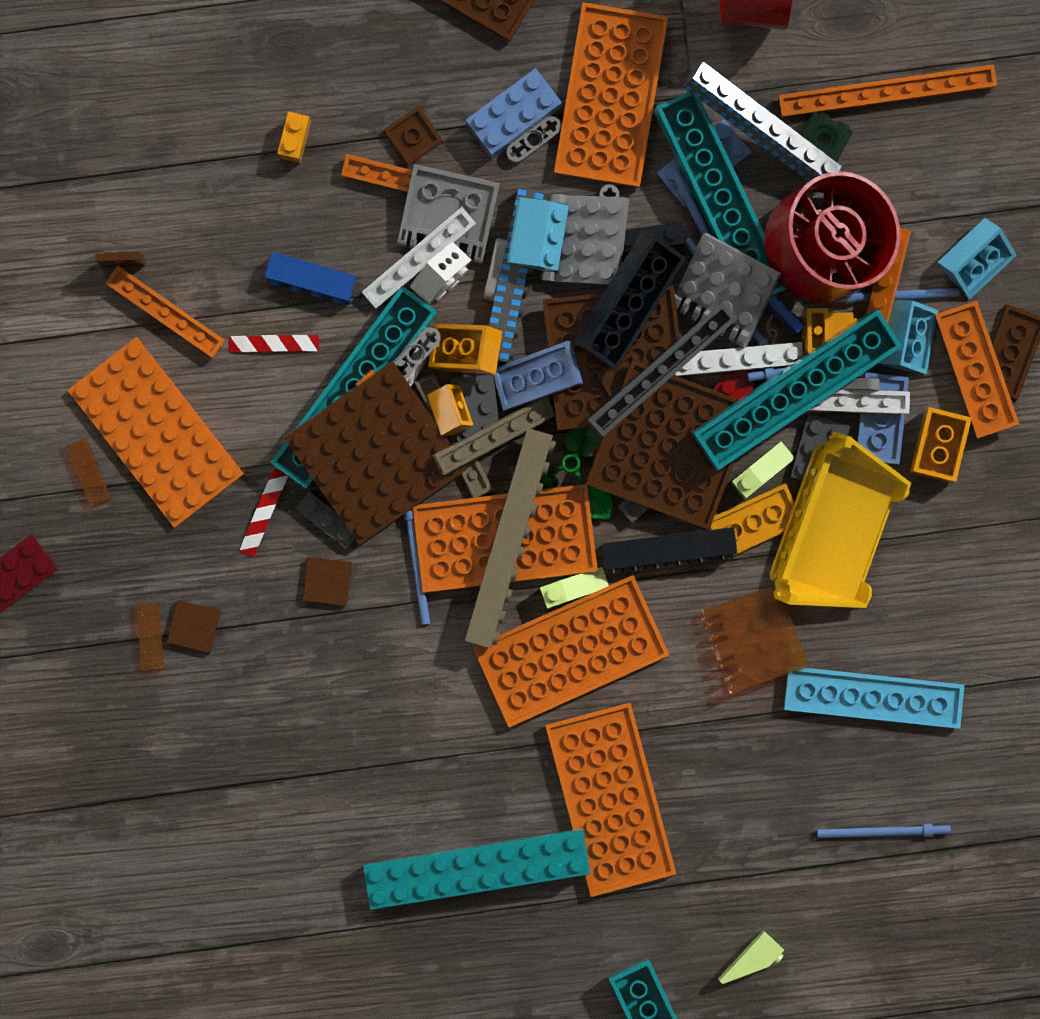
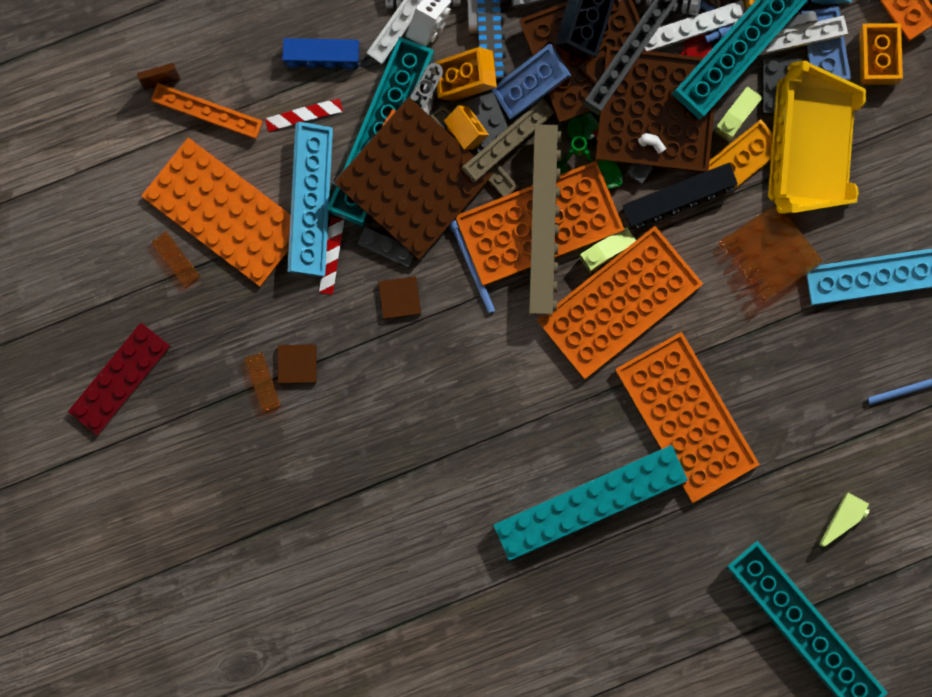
camera: 10 degrees left, 5 degrees down
(255, 444) = (310, 199): none -> medium azure plate
(655, 480) = (652, 140): none -> white arm

